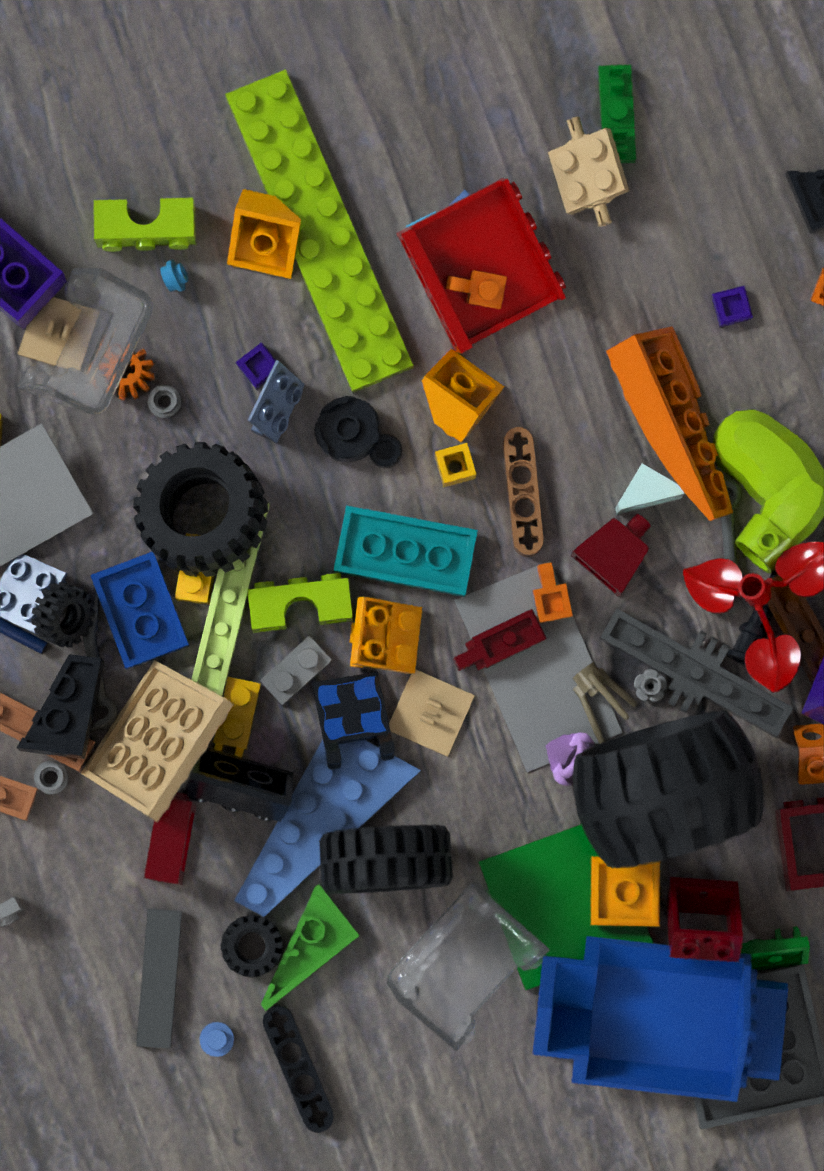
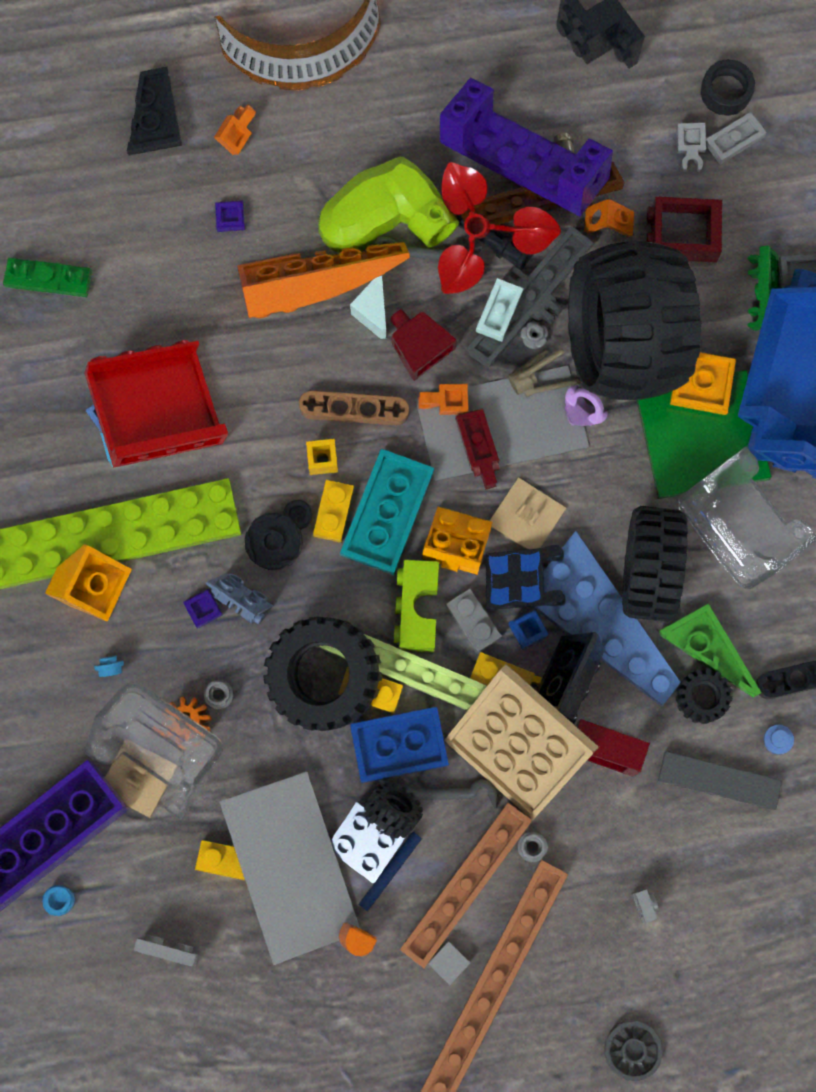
camera: 75 degrees left, 5 degrees down
(68, 712) = (482, 821): black wing -> none
(172, 227) = (57, 709): lime arch -> none
(294, 733) = (528, 629): none -> blue brick
(396, 490) = (333, 511): none -> yellow plate
(459, 394) = (263, 442): light orange slope -> none
(482, 288) = (175, 407): orange plate -> none
(588, 171) = (92, 305): tan plate -> none
(667, 637) = (499, 310): none -> light aqua plate
(721, 899) = (718, 307): dark red window -> none

